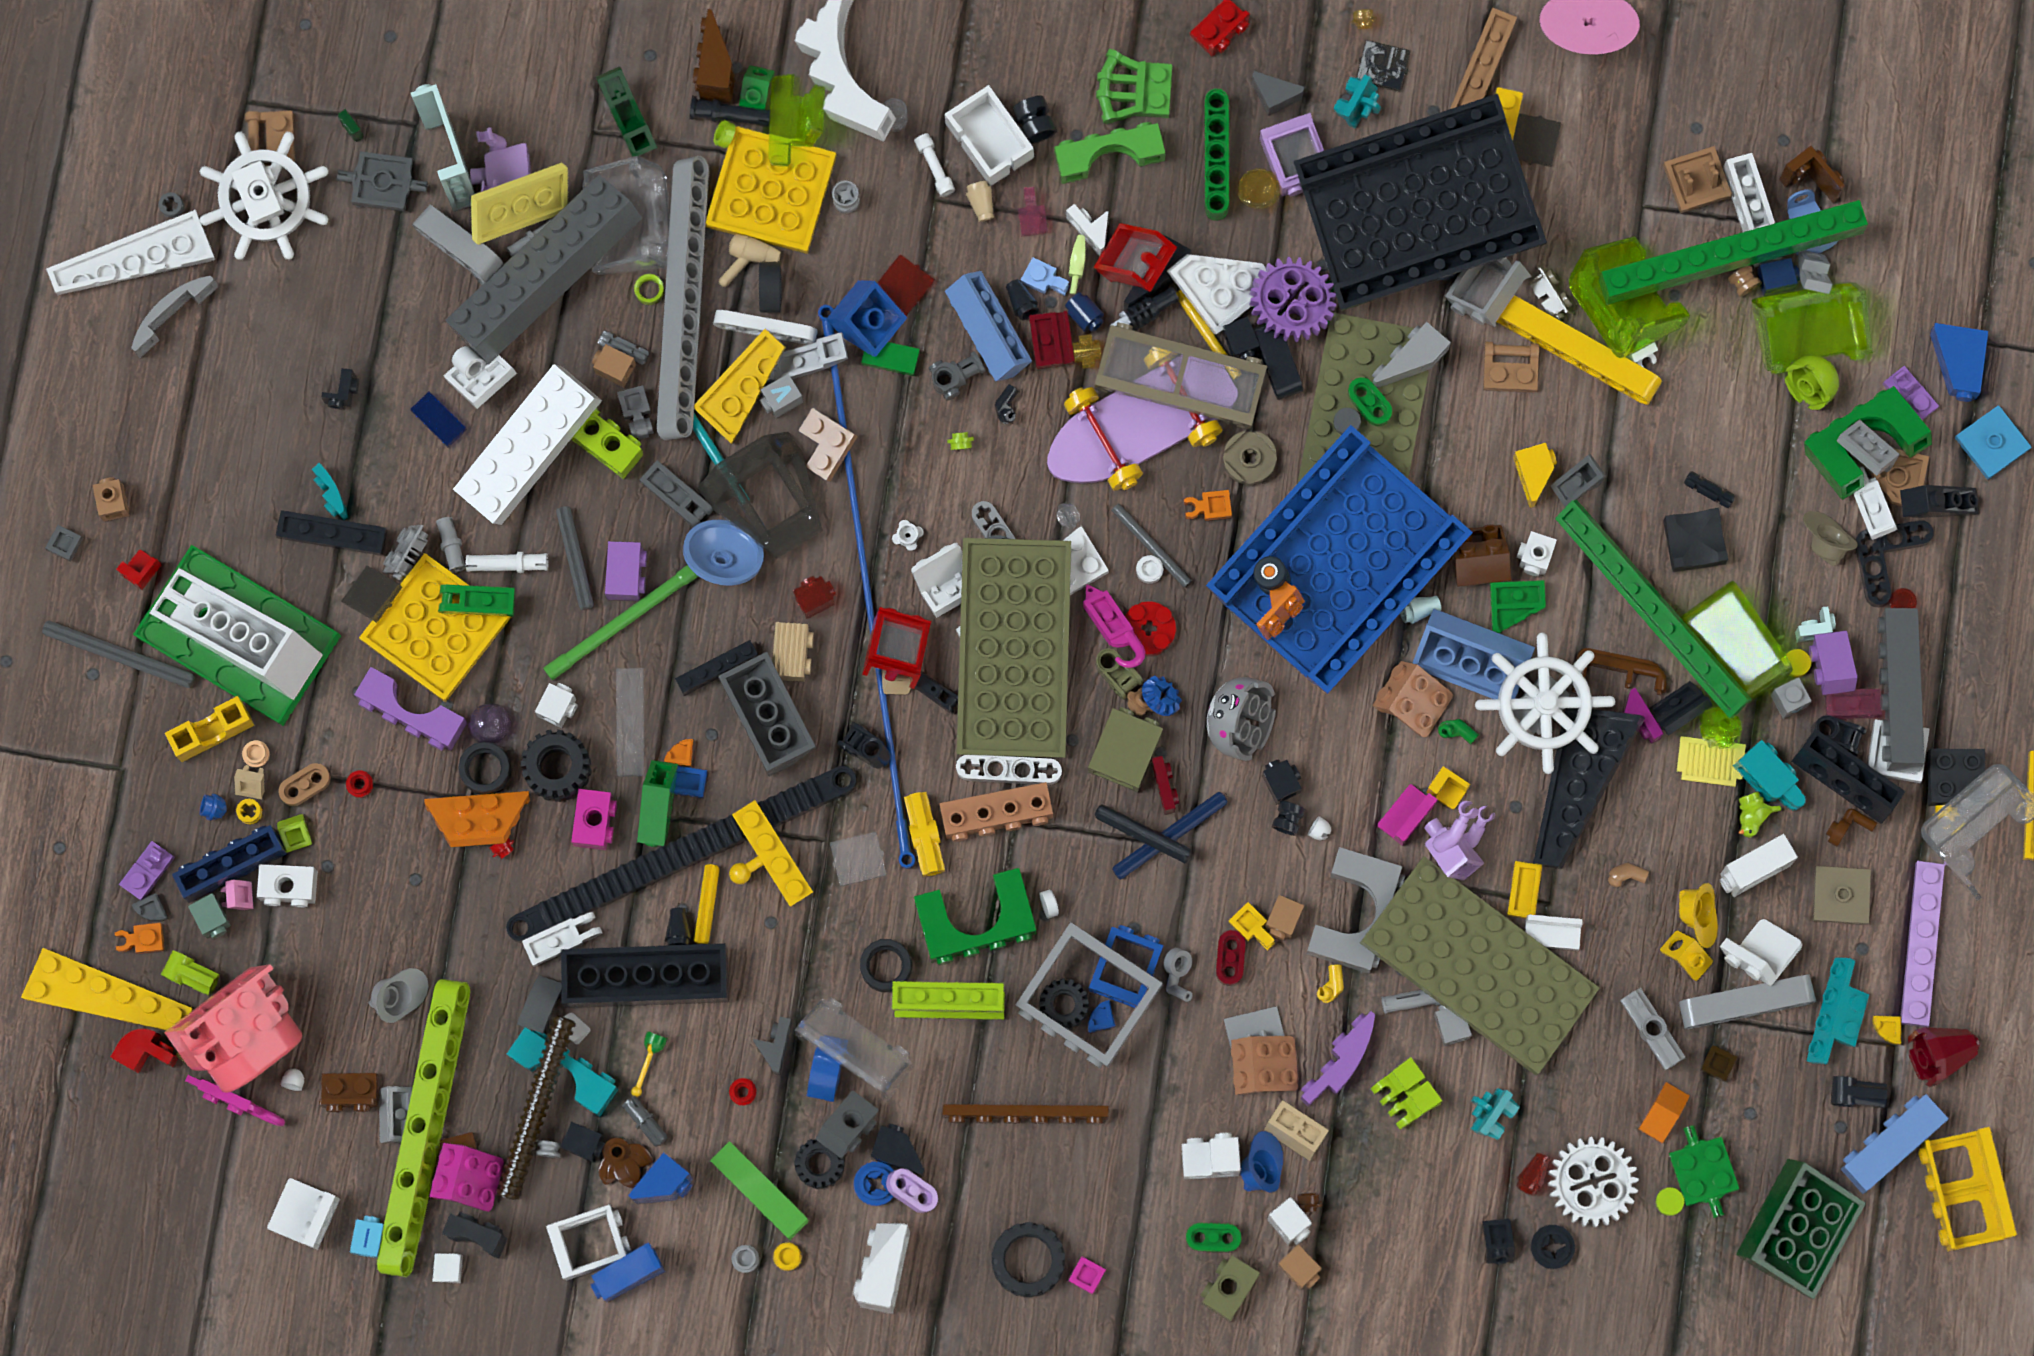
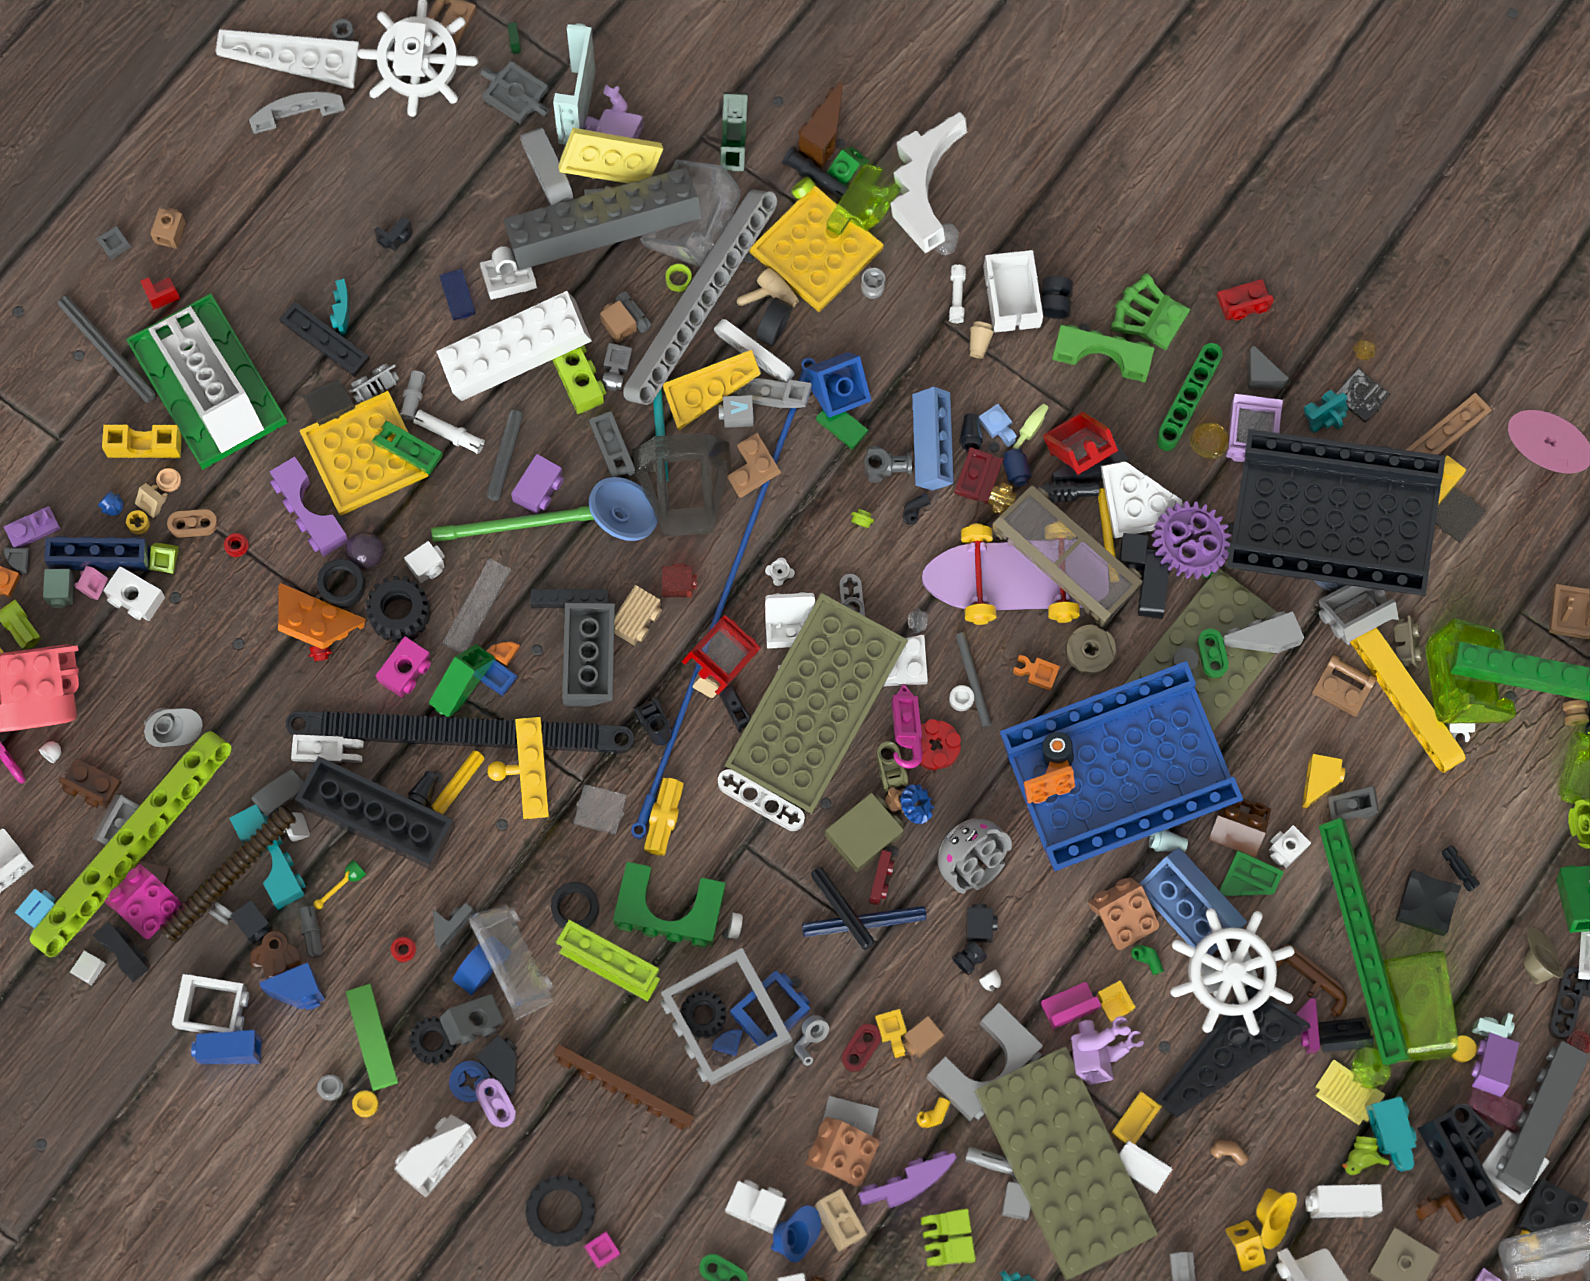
camera: 20 degrees right, 5 degrees down
(905, 283) = (884, 374): clear red piece -> none
(996, 811) = (732, 828): nougat brick -> none
(1032, 217) = (1014, 372): clear pink plate -> none
(1094, 233) = (1057, 408): white slope -> none
(1790, 698) = (1443, 1075): light grey brick -> none

